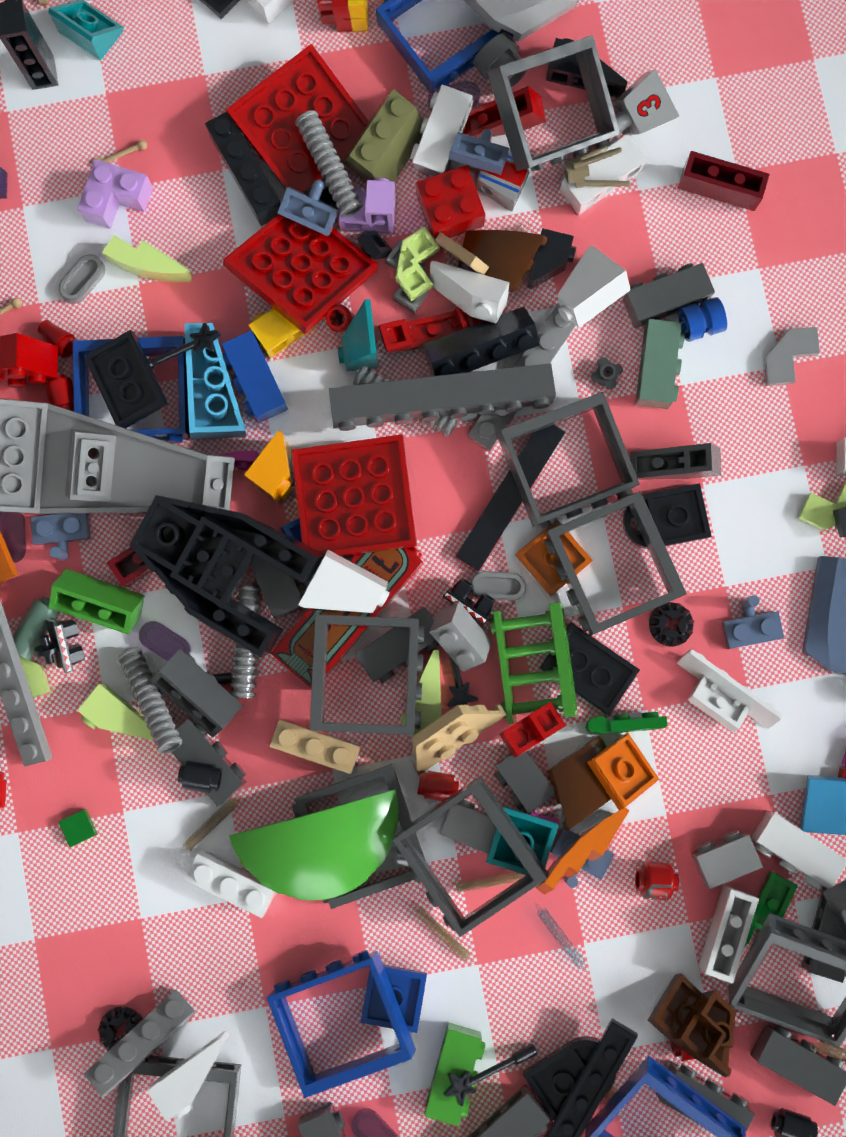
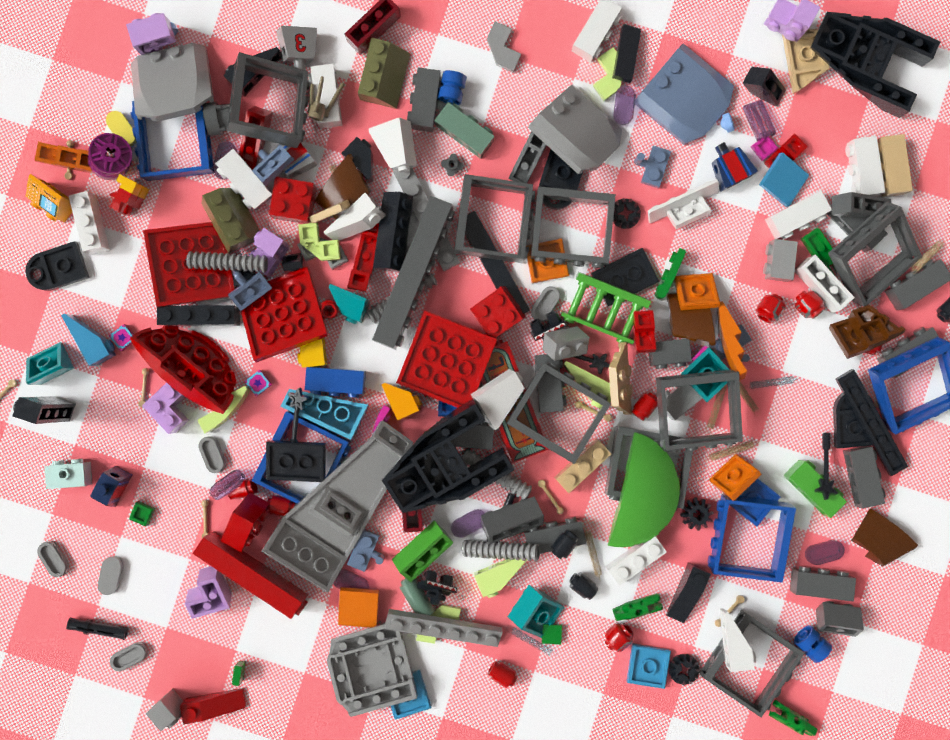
camera: 70 degrees left, 5 degrees up
(53, 315) = (227, 484): none -> clear purple tile
(55, 821) = (528, 641): none -> clear light blue piece
(96, 787) = (534, 610): none -> teal slope
(101, 980) = (648, 666): none -> dark azure tile
(118, 918) = (619, 637): none -> red head
(139, 1043) = (699, 662): light grey plate -> none
(140, 63) = (92, 344): none -> dark azure slope
(161, 834) = (583, 585): none -> black brick
(169, 96) = (121, 337): none -> dark pink tile
(170, 922) = (638, 607): none -> green hinge
(177, 187) = (189, 365): none -> red brick
(201, 286) = (258, 383): none -> tile
(225, 978) = (688, 592): none -> black slope
(253, 1054) = (739, 599): none -> tan hinge
(265, 709) = (541, 483): none -> tan hinge
(323, 930) = (702, 518): none -> black gear
(392, 700) = (578, 404): none -> tan hinge
(409, 955) = (735, 477): none -> orange tile
(452, 530) = (498, 312): none -> red brick
(520, 928) = (747, 400): none -> tan piece
(670, 227) = (383, 73): none -> olive slope
(690, 930) = (809, 304): none -> red head
(739, 501) = (577, 130): none -> light grey wedge
(807, 546) = (624, 105): none -> clear purple tile
(809, 727) = (731, 166): none -> torso

